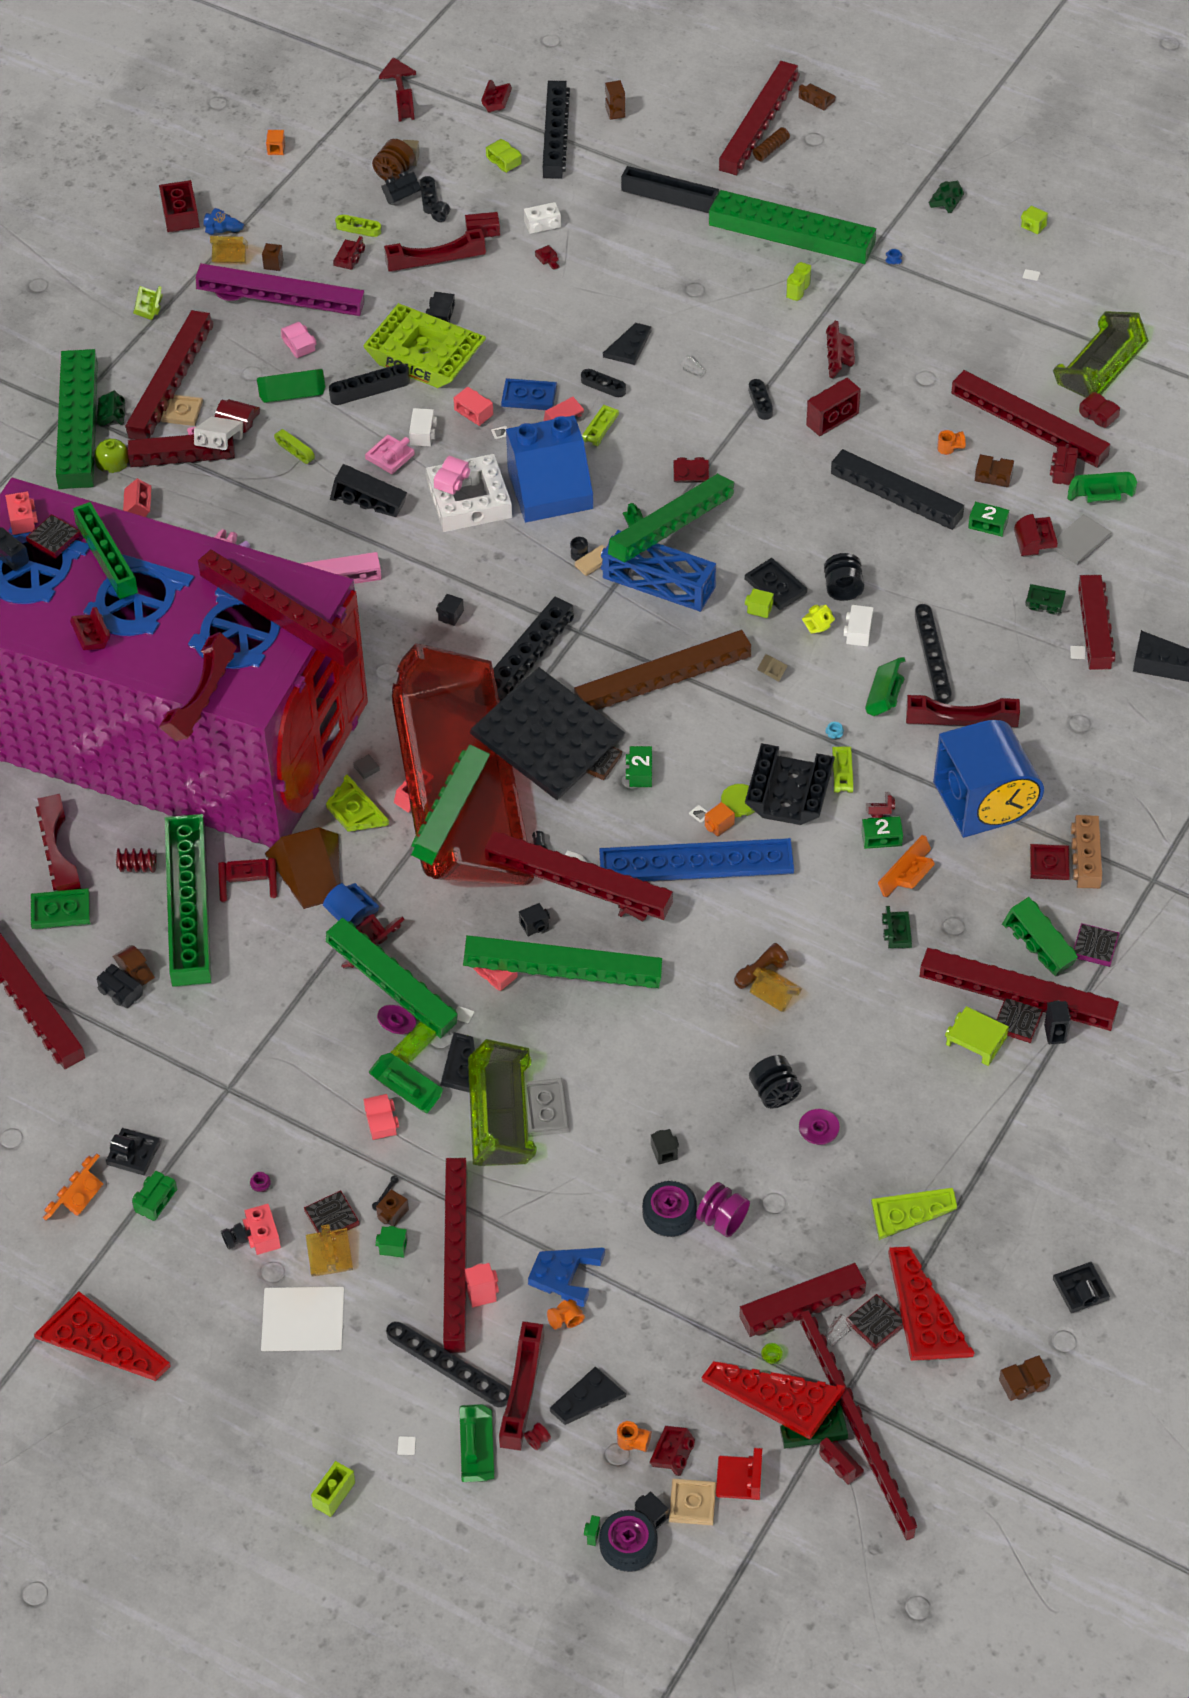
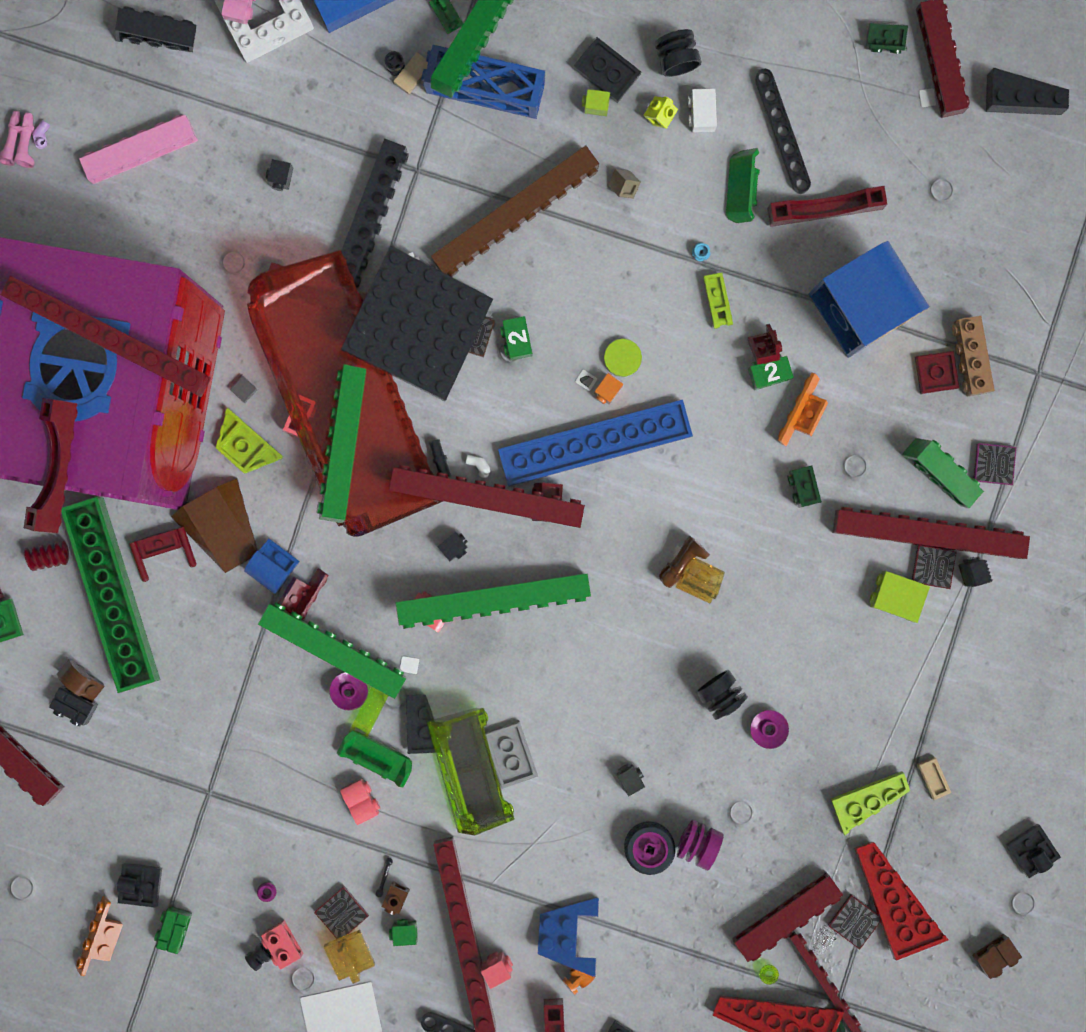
camera: 15 degrees left, 35 degrees up
(773, 786) = (685, 335): black slope -> none
(985, 1205) = (934, 778): none -> tan tile

